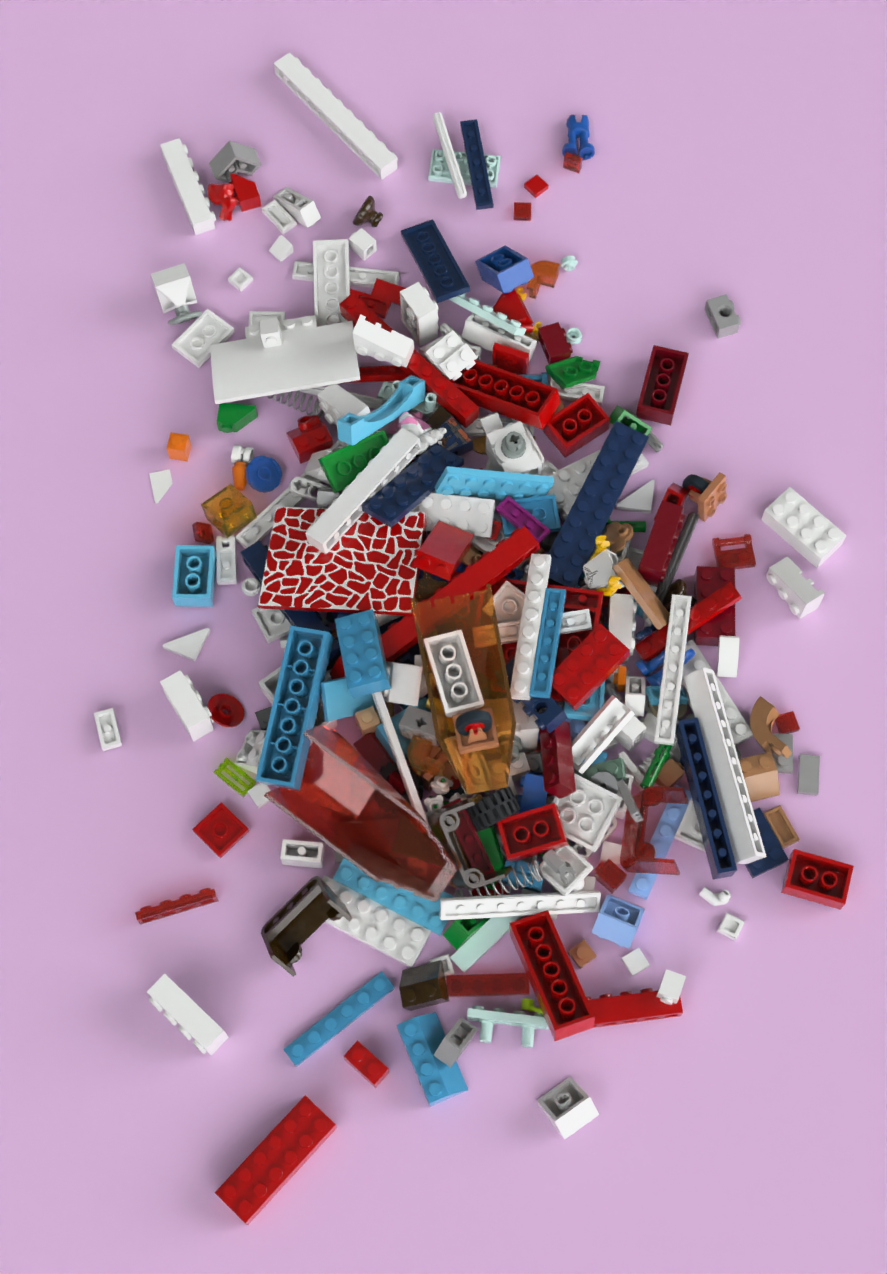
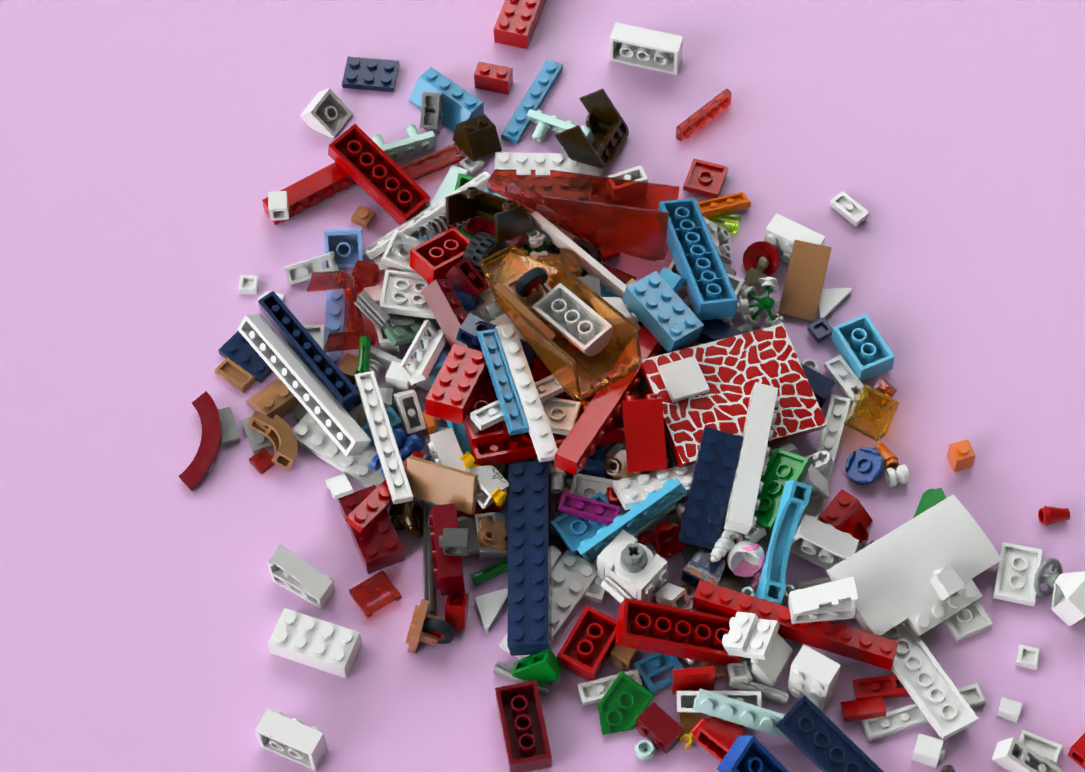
camera: 155 degrees right, 10 degrees down
(142, 369) = (1050, 515): none -> red cone
(160, 482) = (955, 424): white sticker -> none
(203, 658) = (804, 280): none -> medium nougat tile
(217, 617) = (820, 330): none -> dark blue plate
(224, 789) = (724, 204): none -> orange tile
(241, 695) = (753, 275): none -> dark tan plate
(247, 662) = (766, 304): none -> white plant
(325, 951) = (554, 123): none -> light aqua plate
(382, 579) = (683, 379): none -> white tile
(494, 1146) = (370, 74): none -> dark blue plate
(496, 692) = (524, 310): none -> medium nougat tile
(523, 789) = (467, 278): none -> dark red slope
(635, 962) = (316, 228): white tile -> none
(658, 522) = (454, 541): none -> dark grey brick
(662, 908) = (303, 270): none -> white plate
(817, 879) = (187, 339): red brick -> none
(828, 762) = (210, 442): none -> dark red tile
(854, 451) = (291, 739): none -> white brick

